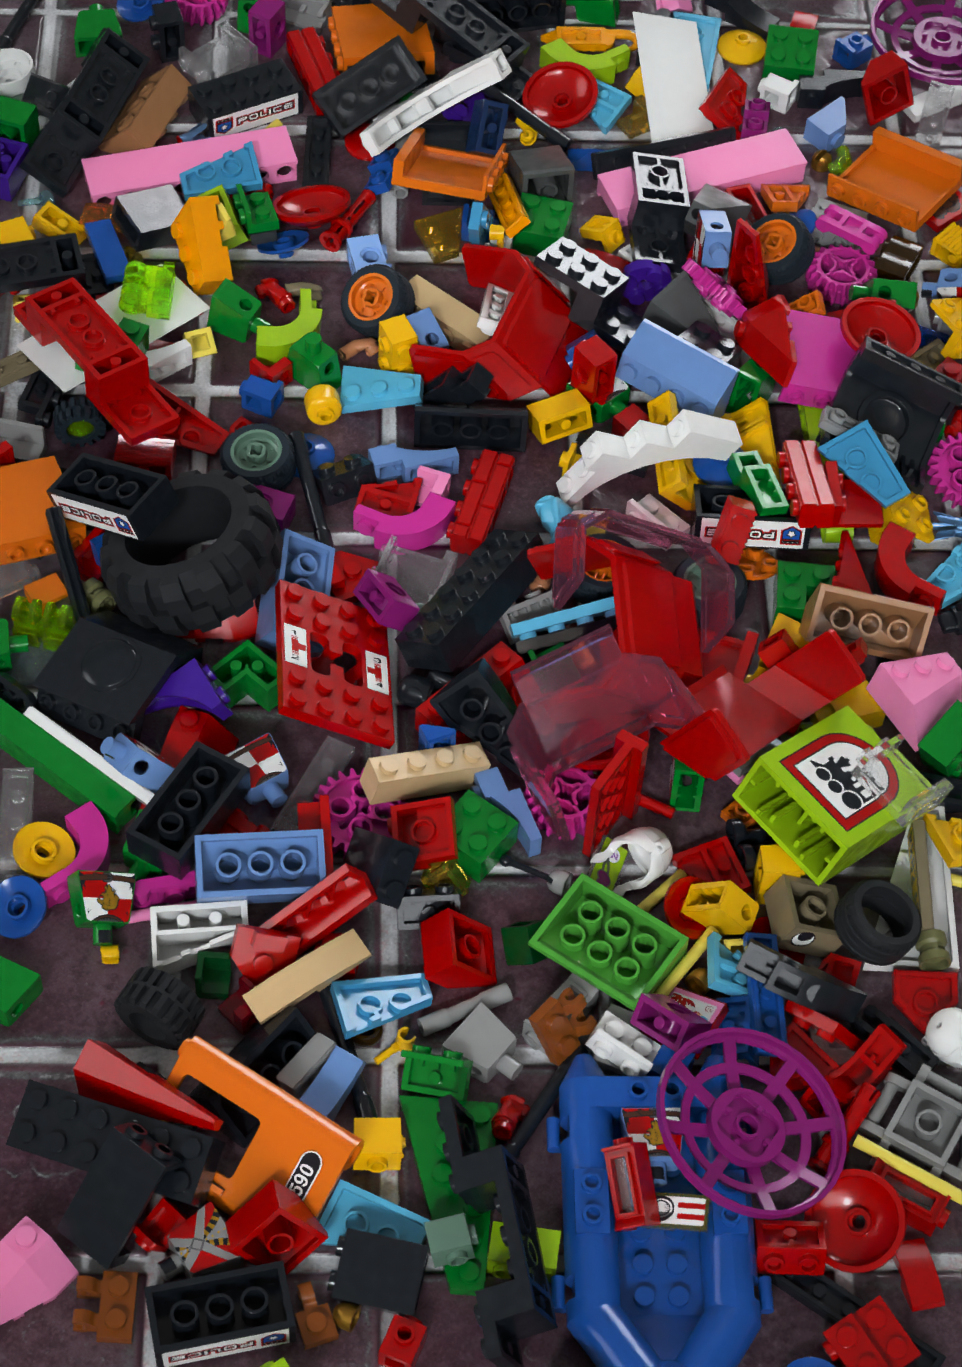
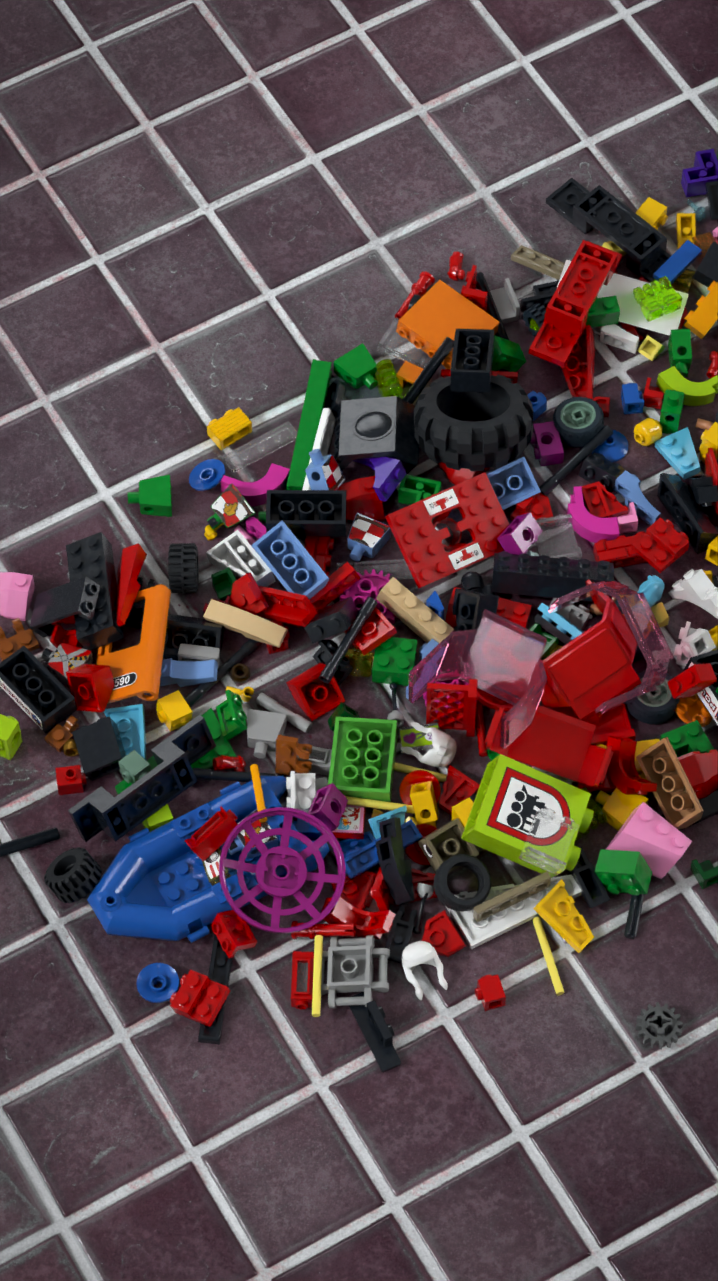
camera: 65 degrees right, 5 degrees up
(45, 839) = (248, 458): yellow dish -> none
(153, 454) = (542, 371): red brick -> none
(378, 1000) = (258, 667): dark azure wing -> none
(454, 902) = (332, 666): none -> black piece
(507, 466) = (661, 544): none -> red plate
(602, 1093) = (258, 789): none -> light orange bar
(673, 503) = (702, 641): none -> white brick
(856, 976) = (424, 891): none -> hinge
(885, 1225) = (268, 959): red dish -> none
(918, 1276) = (259, 1006): red slope -> none
(932, 950) = (467, 923): olive wheel -> none

